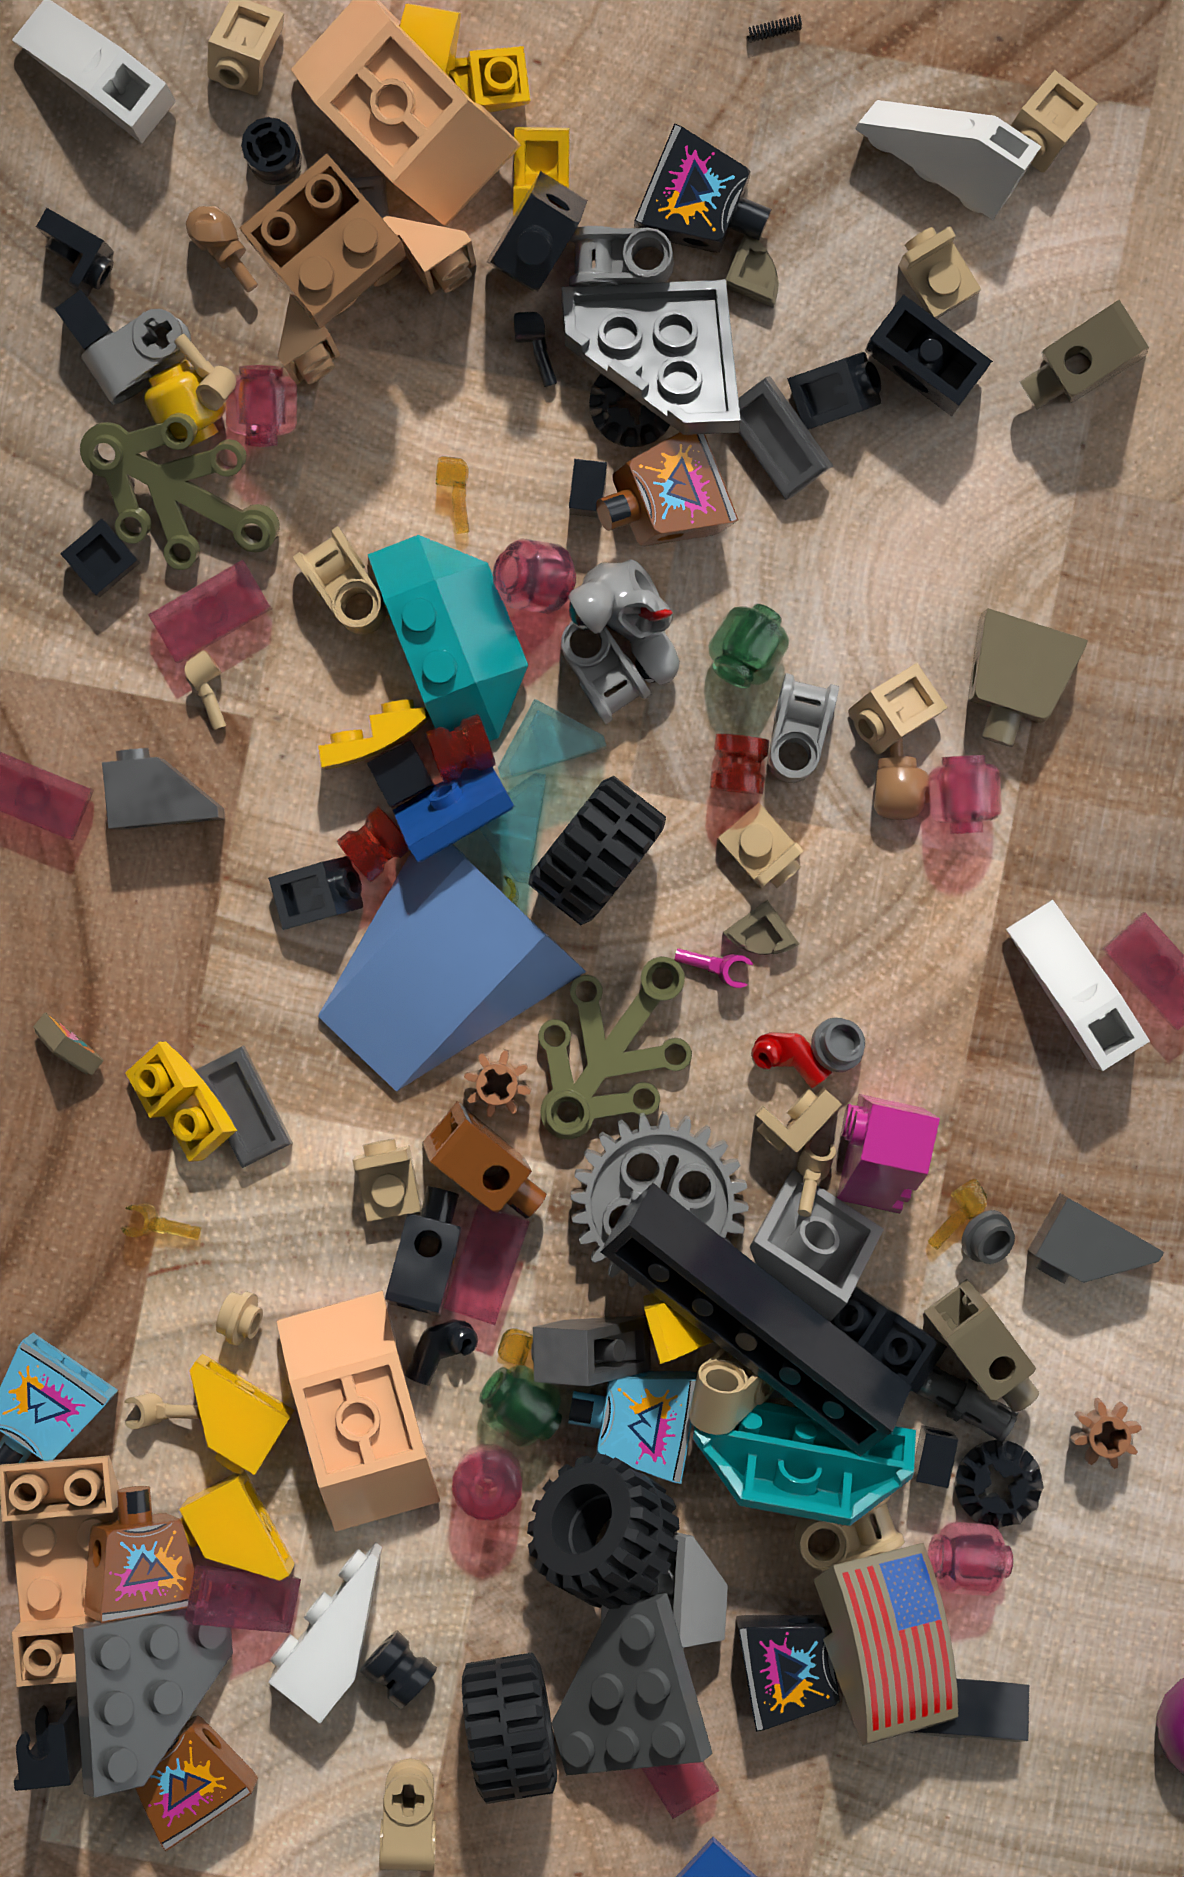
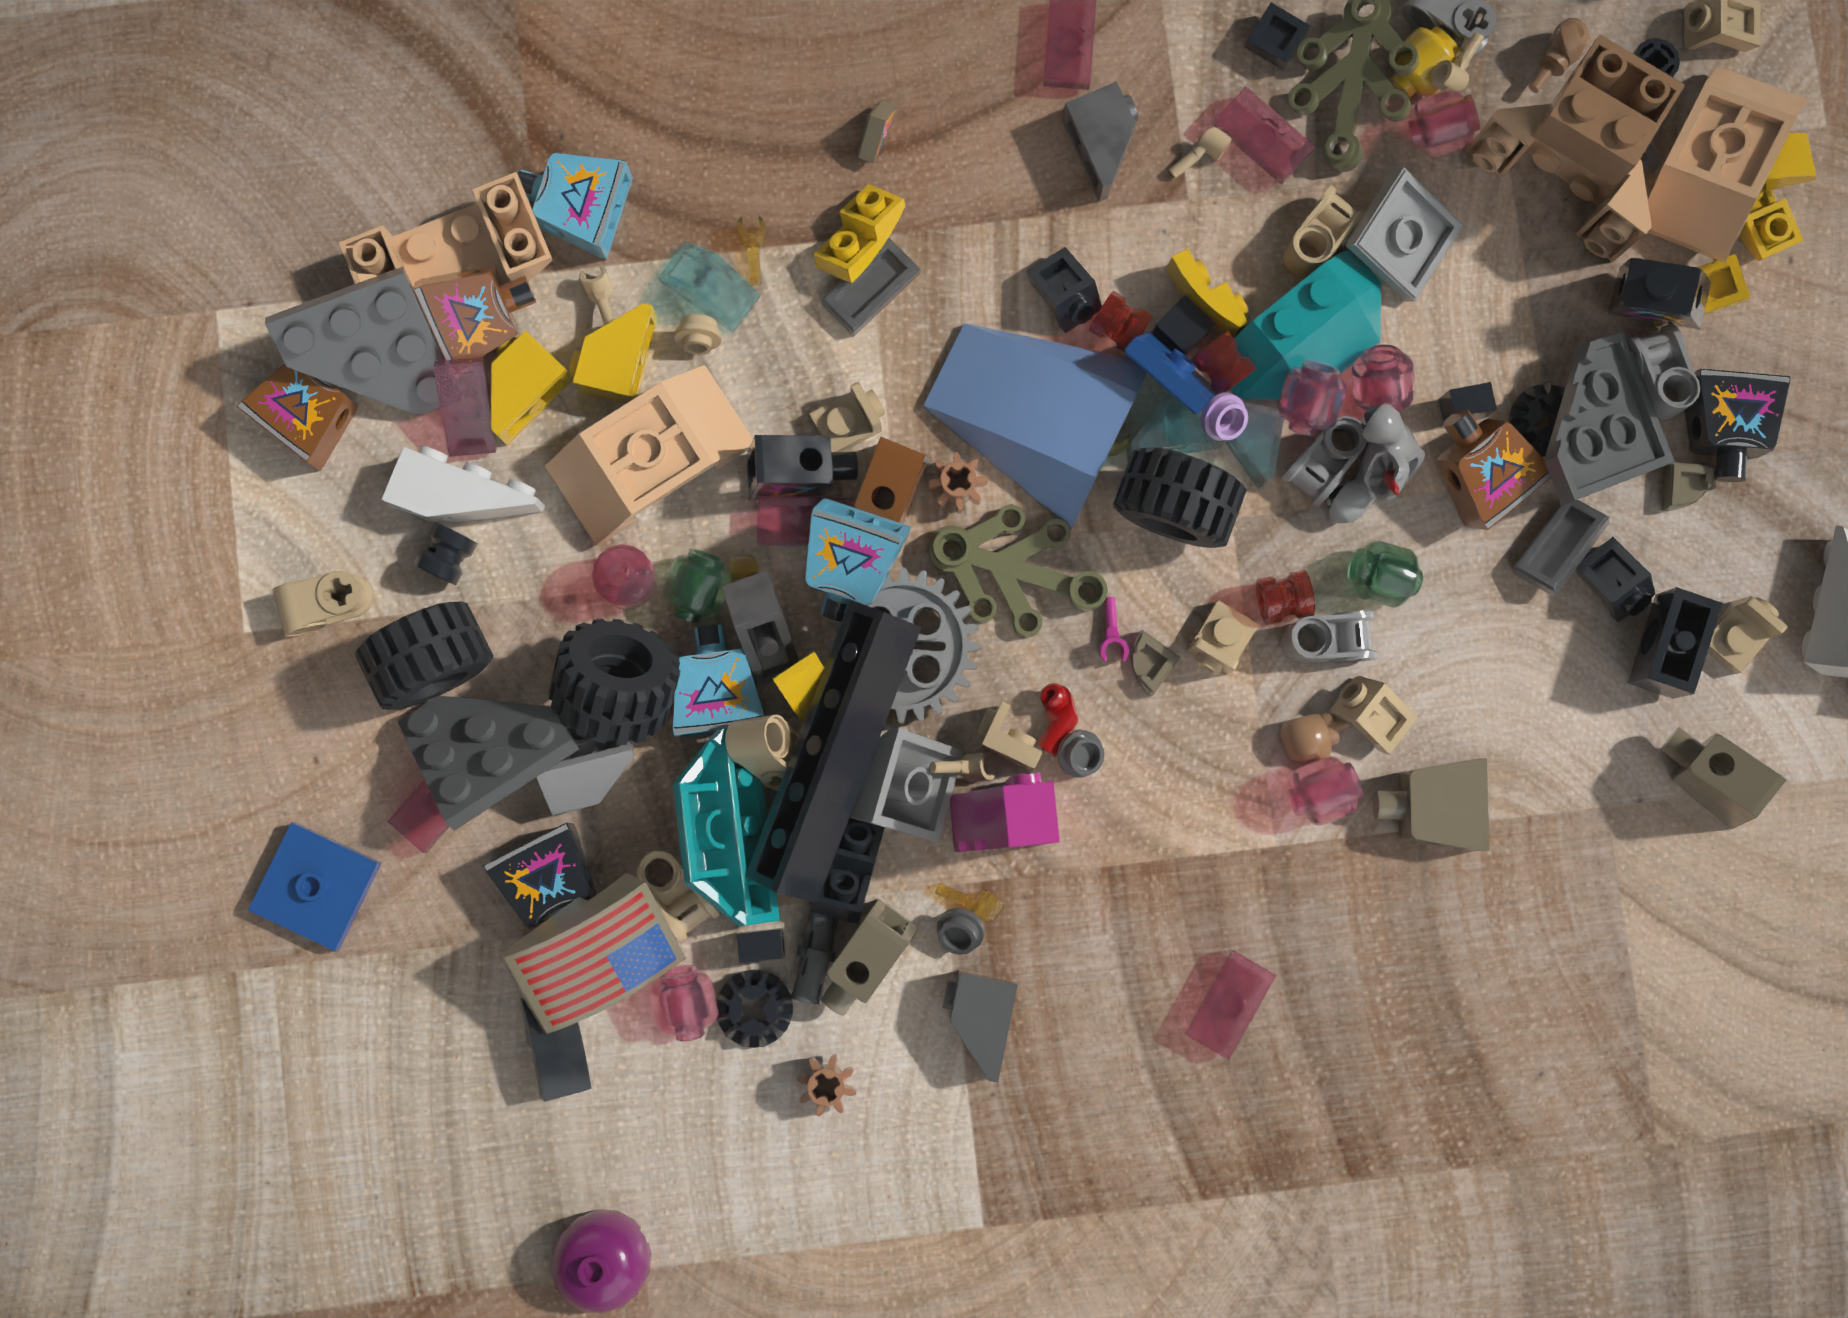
camera: 65 degrees right, 5 degrees down
(55, 1755) = (283, 289): black hinge -> none
(186, 1286) = (710, 285): none -> clear light blue slope
(375, 494) = (1404, 234): none -> light grey plate
(439, 1343) = (726, 503): black arm -> none
(454, 473) = (1441, 295): clear yellow hand -> none
(524, 773) = (1224, 417): none -> lavender plate
(531, 328) = (1579, 319): black hand -> none
(532, 667) = (1312, 397): none -> clear pink head
(546, 1233) = (850, 554): none -> medium azure torso
(1077, 987) = (1195, 937): white slope -> none

